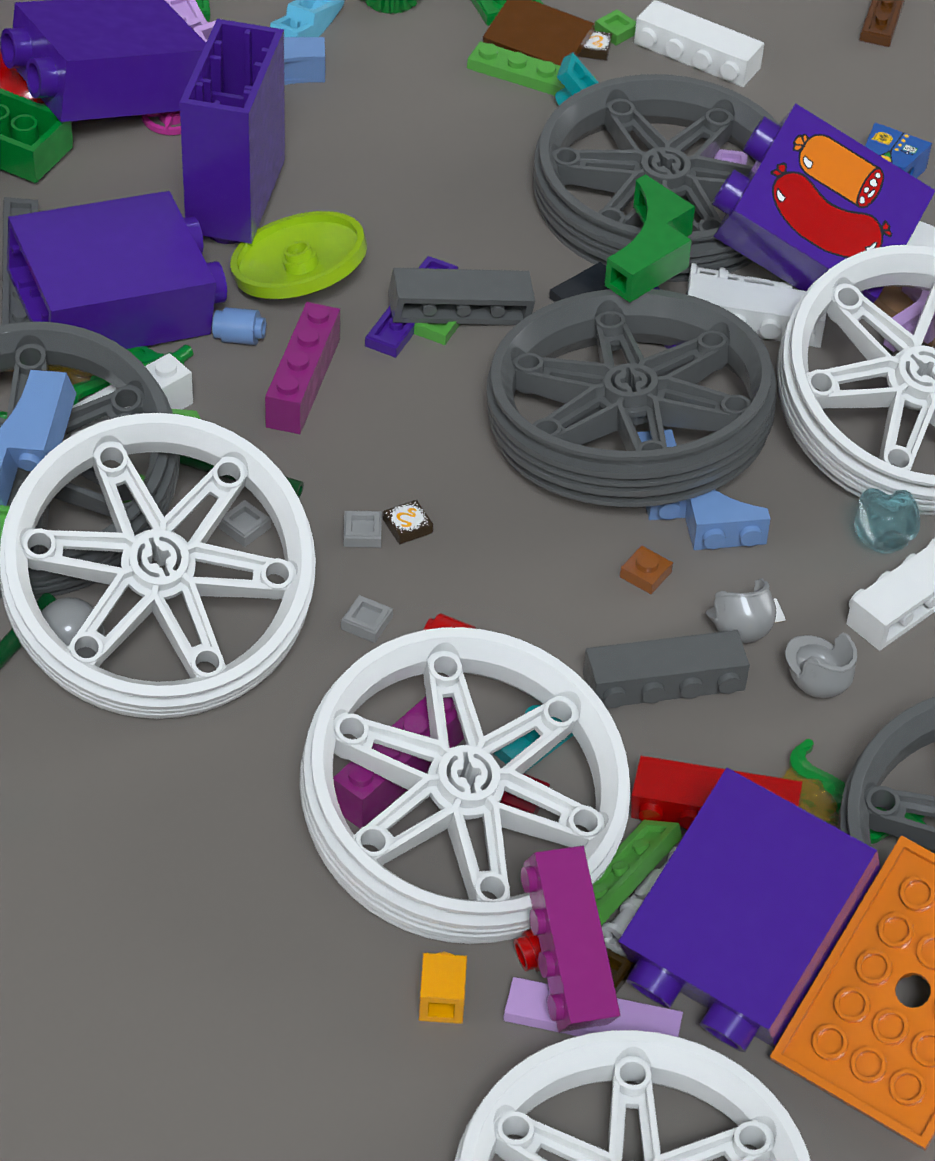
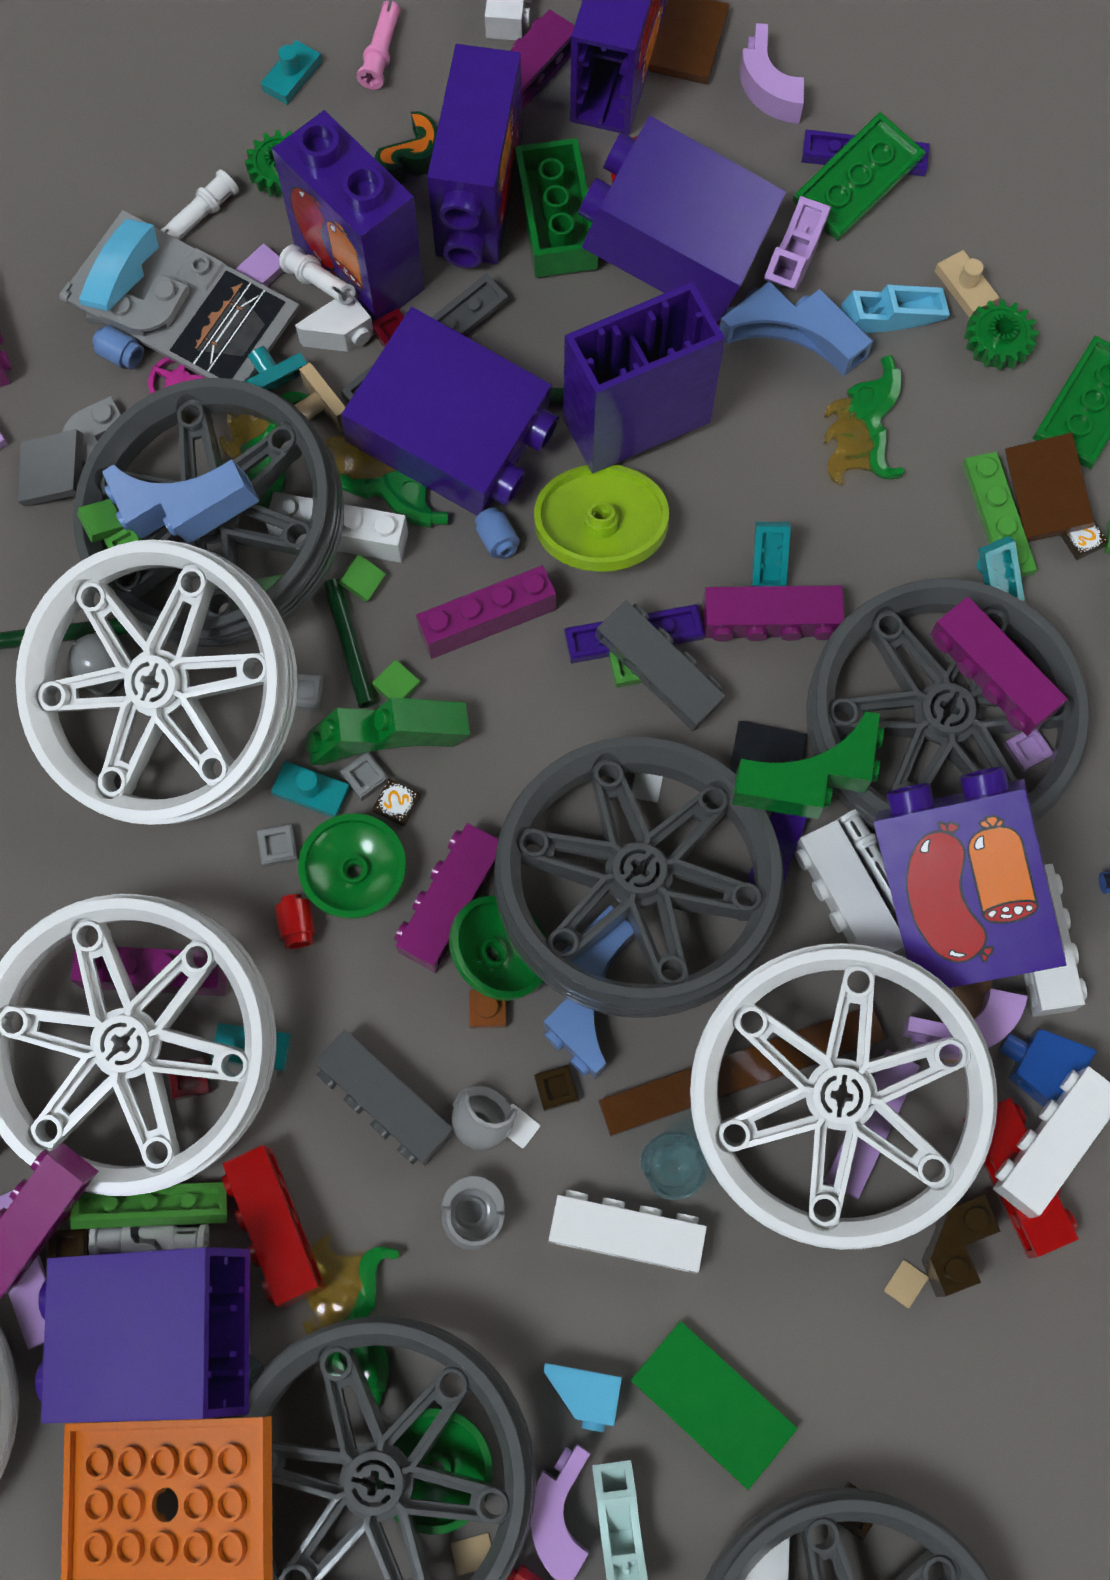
camera: 55 degrees right, 25 degrees up
(301, 462) = (396, 682): none -> bright green tile
(343, 566) = (310, 789): none -> teal tile
(352, 460) = (392, 725): none -> green arch
(375, 96) = (858, 426): none -> piece
(436, 187) = (770, 553): none -> teal tile
(443, 565) = (349, 843): none -> green dish
(481, 217) = (772, 612): none -> magenta brick
(530, 531) = (453, 886): none -> magenta brick
(607, 525) = (480, 931): none -> green dish
(666, 107) = (997, 666): none -> magenta brick
(752, 566) = (556, 1088): none -> dark brown tile
(824, 496) = (737, 1073): none -> reddish brown tile

